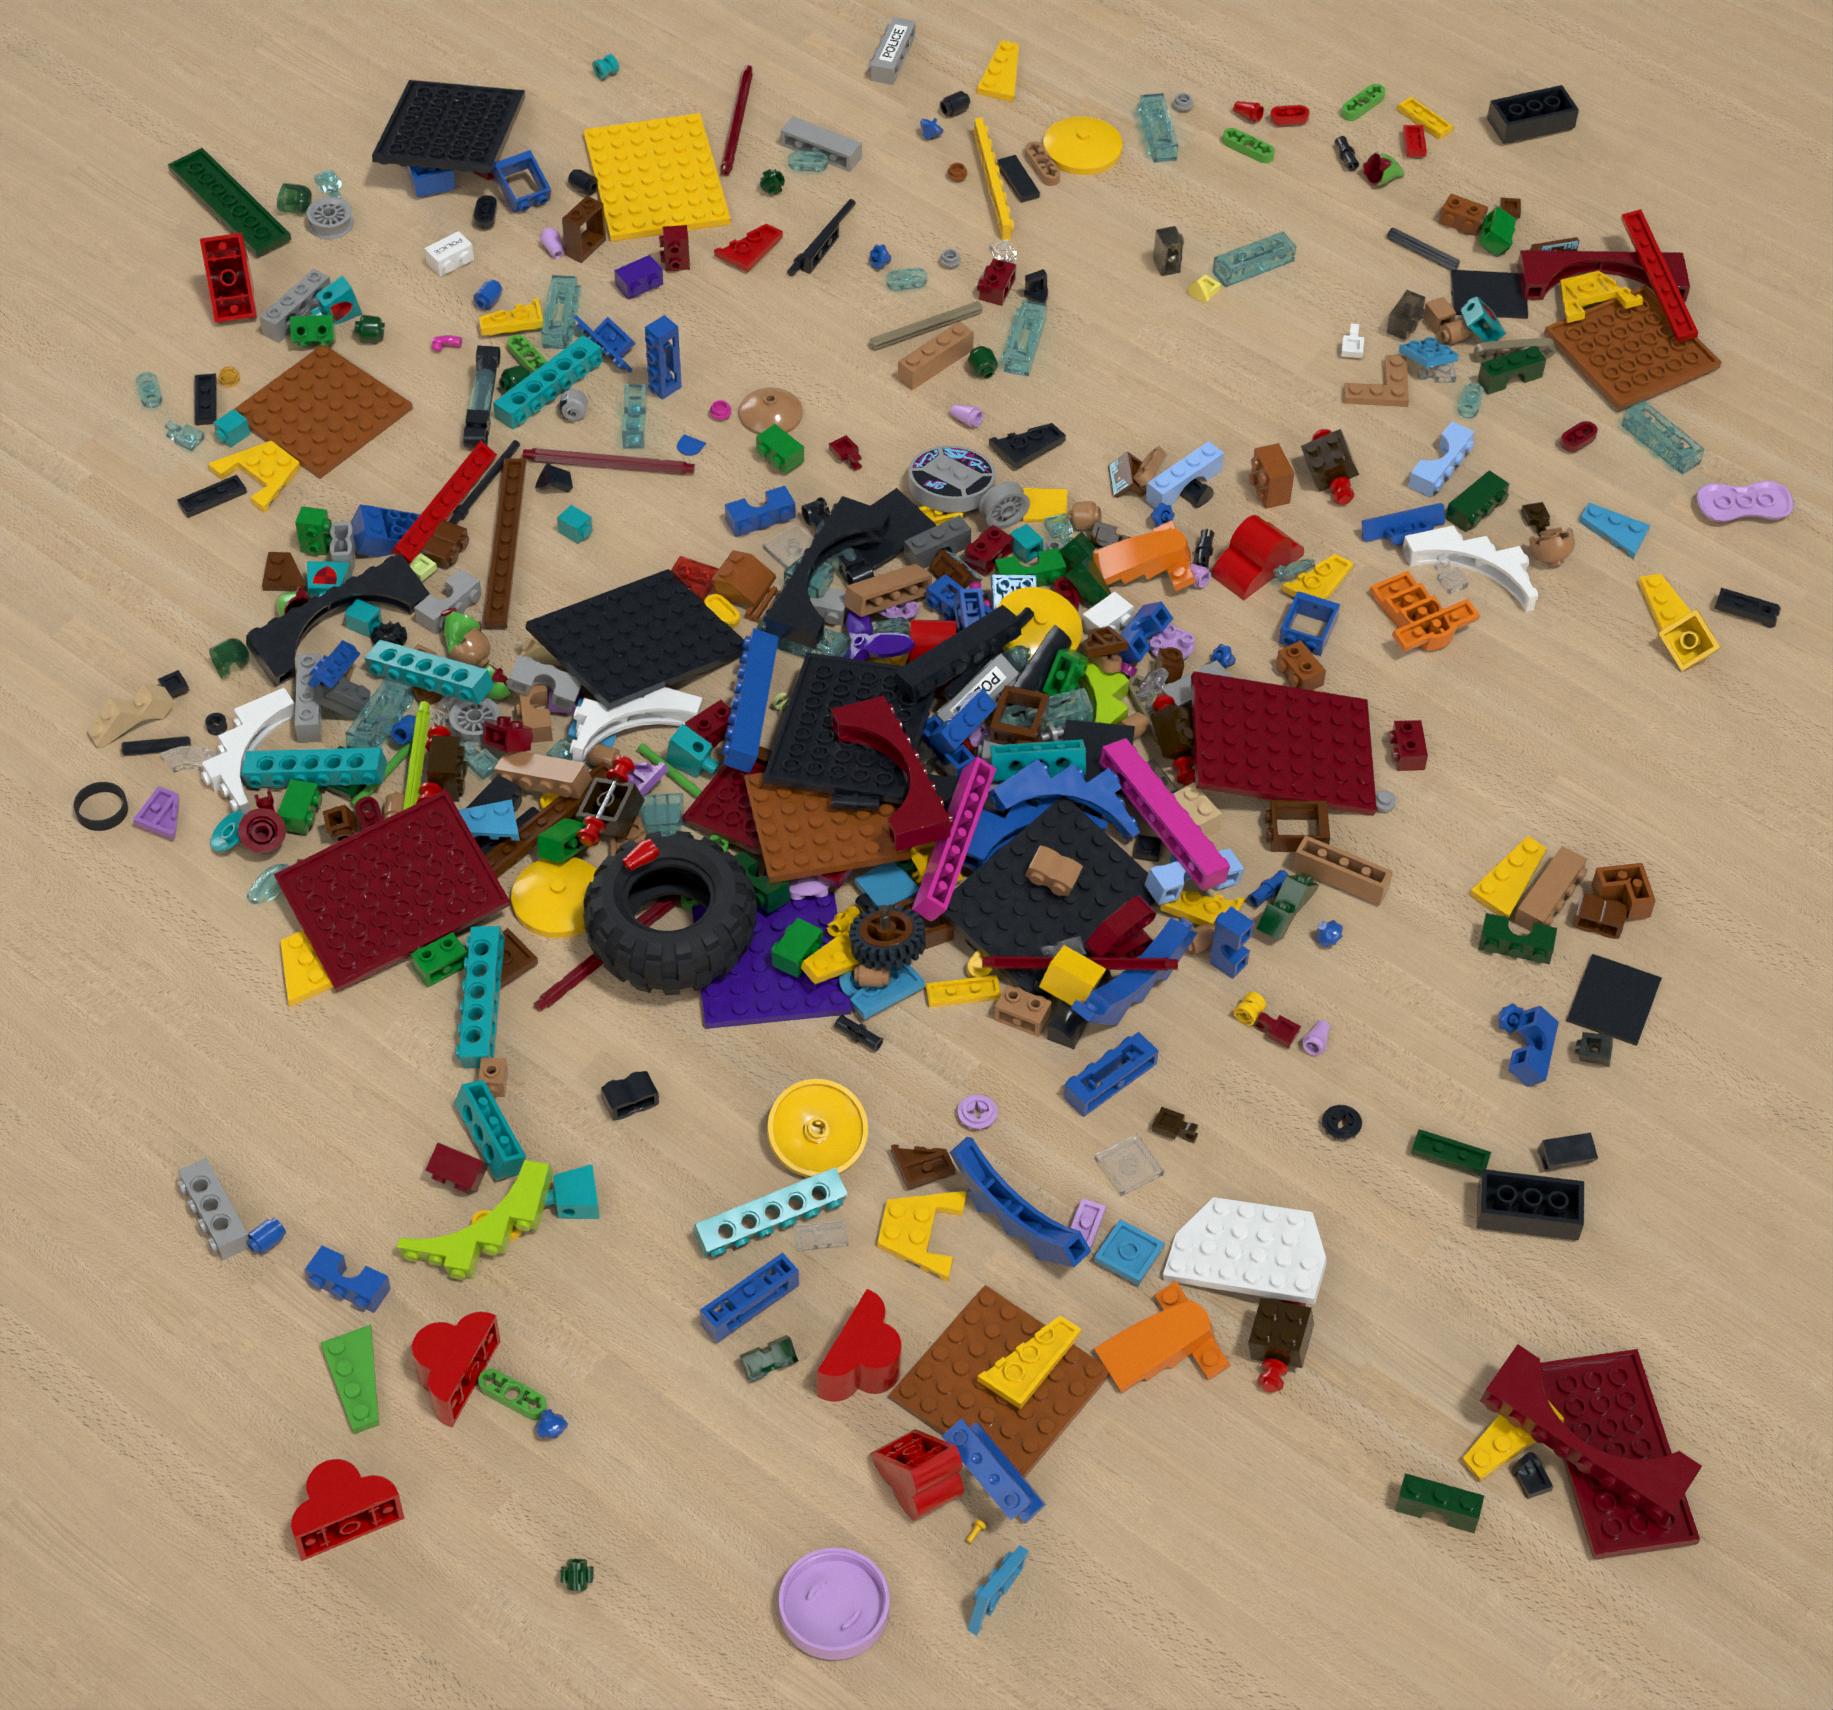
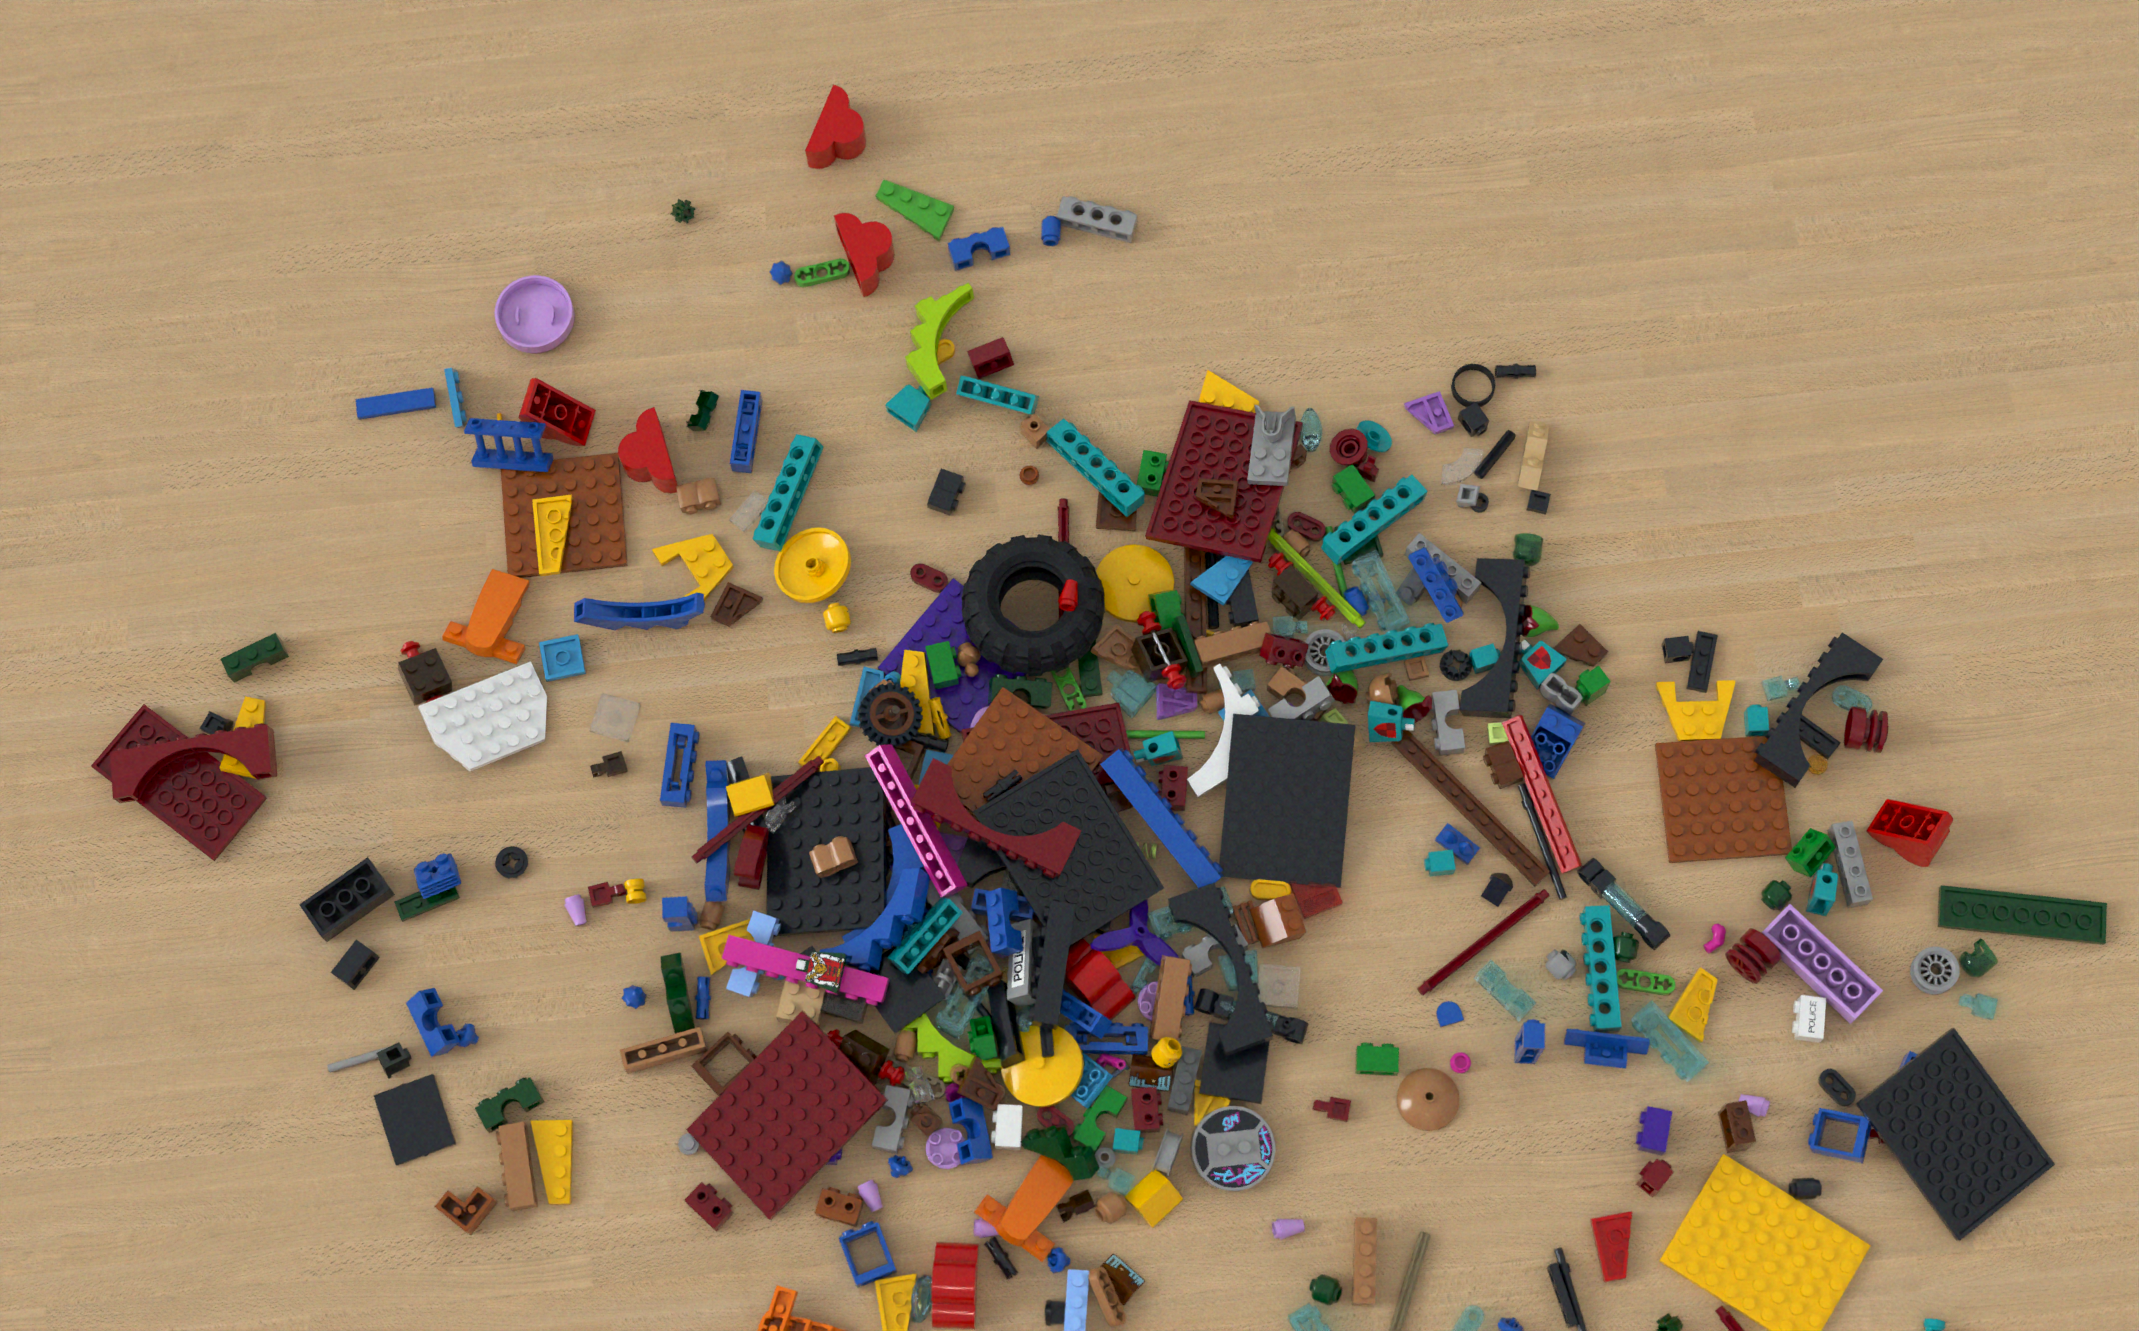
camera: 140 degrees right, 20 degrees up
(55, 786) = (1515, 371): none -> black pin
(137, 778) = (1473, 420): none -> black brick
(169, 357) = (1868, 730): none -> dark red wheel
(217, 726) = (1467, 495): none -> light grey slope
(219, 512) = (1677, 649): none -> black brick
(240, 390) = (1783, 750): none -> black arch
(252, 726) = (1453, 520): white arch -> none
(324, 871) = (1271, 447): none -> light grey plate
(340, 822) = (1313, 500): reddish brown brick -> none
(399, 270) = (1821, 964): none -> lavender brick
(414, 868) = (1218, 495): none -> reddish brown wing
(438, 303) = (1753, 956): none -> dark red wheel
(488, 294) = (1737, 1007): blue brick -> none
(496, 625) = (1387, 722): none -> teal torso
(541, 1050) = (1029, 475): none -> dark orange plate
(545, 529) = (1454, 840): none -> blue tile
(574, 797) = (1186, 641): none -> dark green tile
(723, 1042) = (928, 577): none -> dark red plate
(745, 518) = (1337, 977): blue arch -> none
(766, 936) = (968, 657): none -> medium nougat animal
(844, 1071) = (836, 618): none -> yellow head
(850, 1281) = (698, 496): none -> medium nougat brick
(932, 557) = (1166, 1052): none -> yellow head
(985, 1106) = (735, 660): lavender gear -> none
(1022, 1010) = (773, 759): medium nougat brick -> none
(1029, 445) = (1217, 1239): black wing -> none
(1064, 1646) = (395, 403): none -> blue tile
(1088, 1219) = (603, 652): lavender plate -> none
(1151, 782) = (824, 969): none -> torso
(1265, 661) = (870, 1194): none -> lavender cone
(1440, 1148) = (437, 875): none -> blue brick
(1600, 916) = (470, 1175): reddish brown brick -> none
(1628, 1081) = (353, 1061): none -> light grey bar

